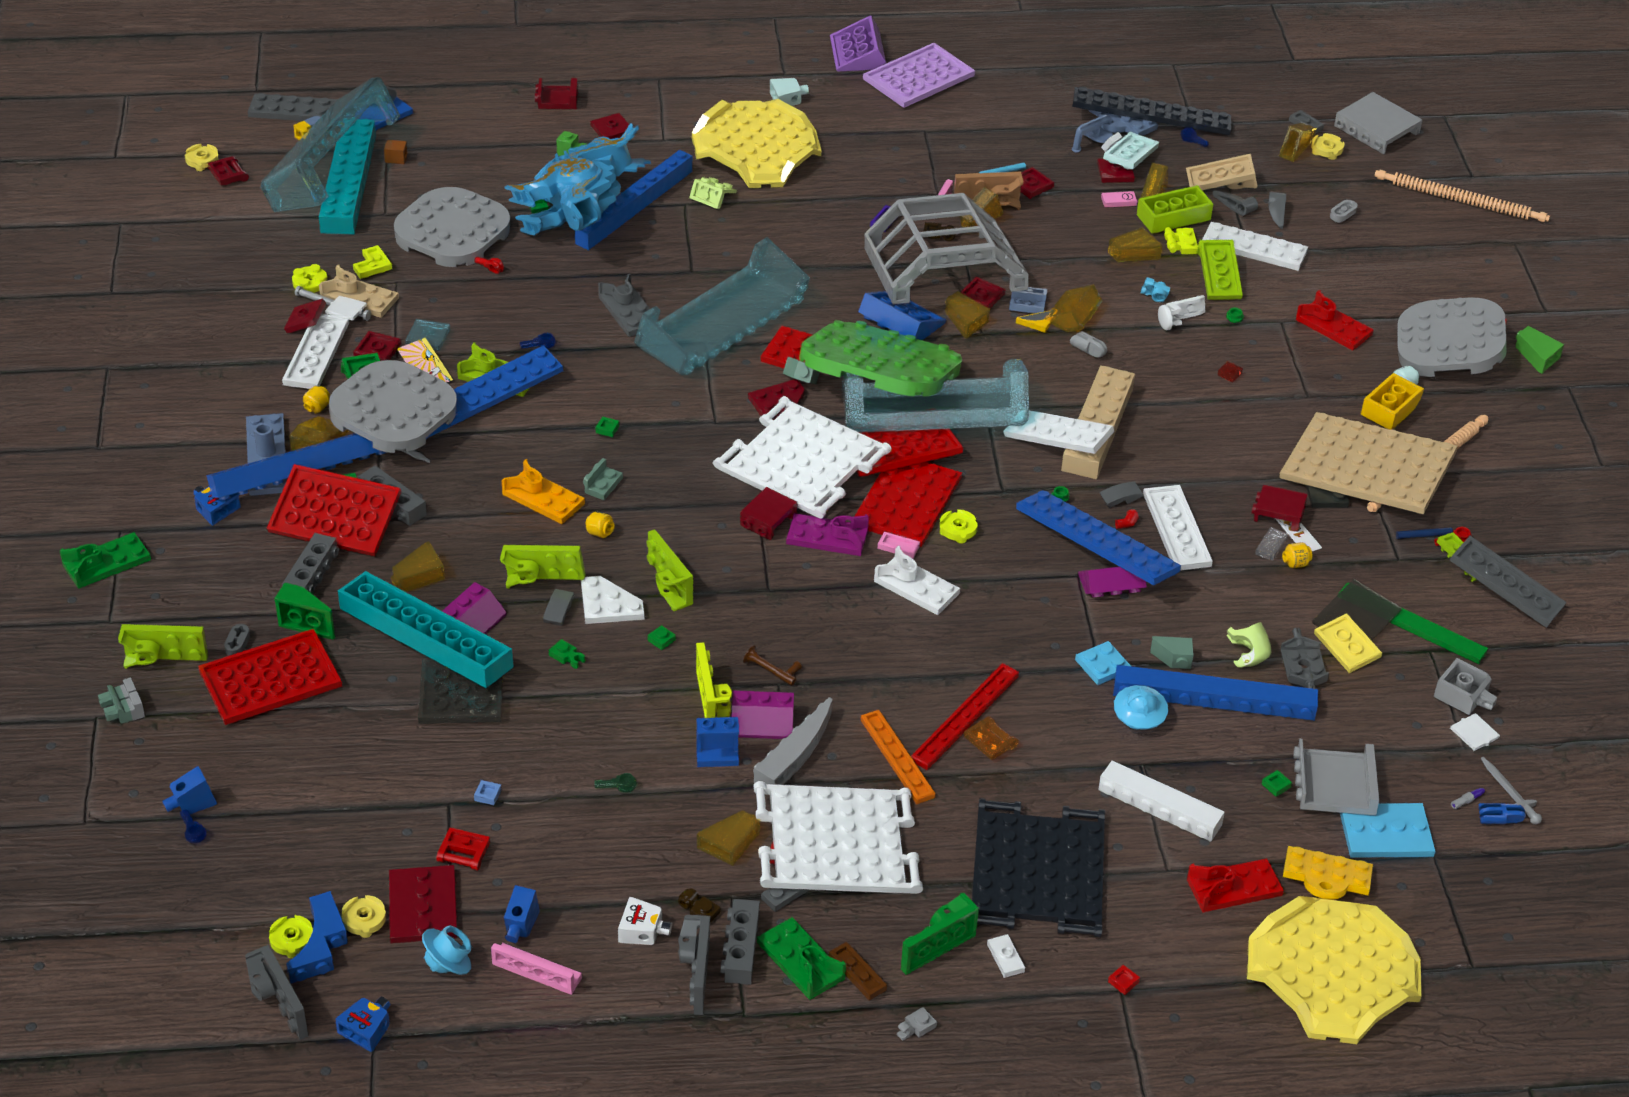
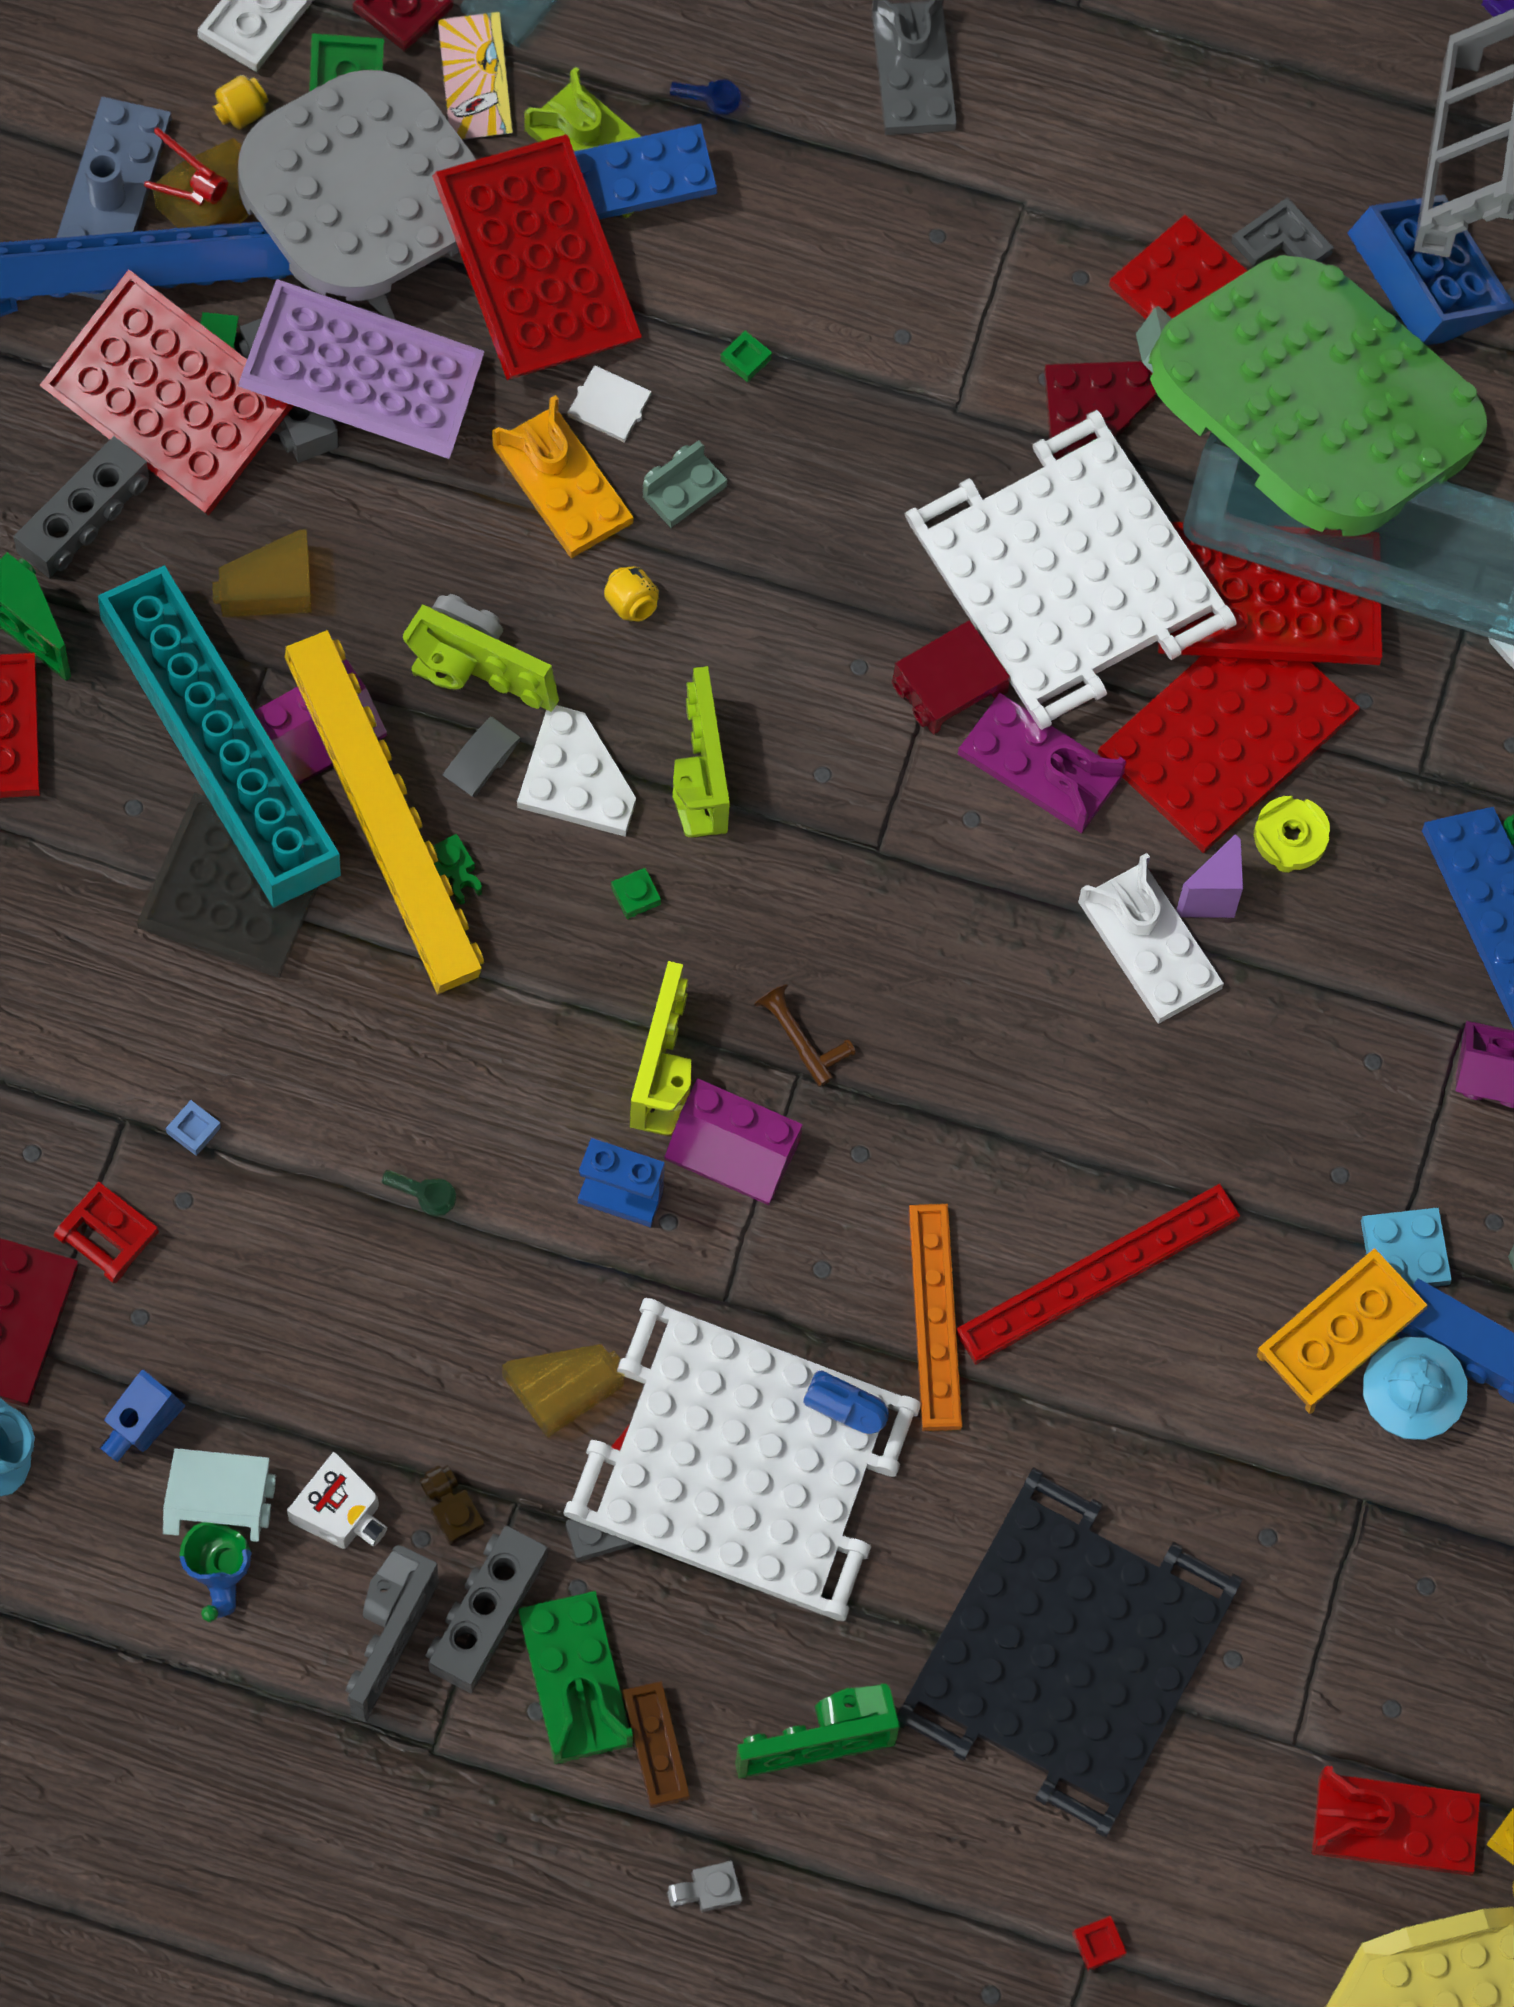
camera: 20 degrees right, 25 degrees up
(316, 422) = (205, 182): none -> red plant
(427, 472) = (361, 369): none -> lavender plate
(491, 410) = (536, 256): none -> red plate
(523, 634) = (383, 812): none -> yellow brick
(535, 968) = (127, 1522): bright pink fence -> none
(551, 462) = (609, 403): none -> white piece
(577, 930) = (218, 1490): none -> light aqua panel
(591, 963) = (219, 1560): none -> green piece
(725, 312) = (1083, 150): clear light blue windscreen -> none
(795, 749) = (757, 1237): light grey slope -> none
(825, 317) = (1283, 229): none -> dark grey plate
(877, 793) = (846, 1403): none -> blue arm
(890, 541) = (1161, 836): bright pink tile -> none
(937, 548) = (1215, 886): none -> medium lavender slope
(987, 741) = (1106, 1346): clear orange plate -> none
(1006, 956) = (923, 1811): white plate -> none
(1093, 693) = (1342, 1328): none -> light orange plate
(1161, 801) = (1351, 1600): white brick -> none

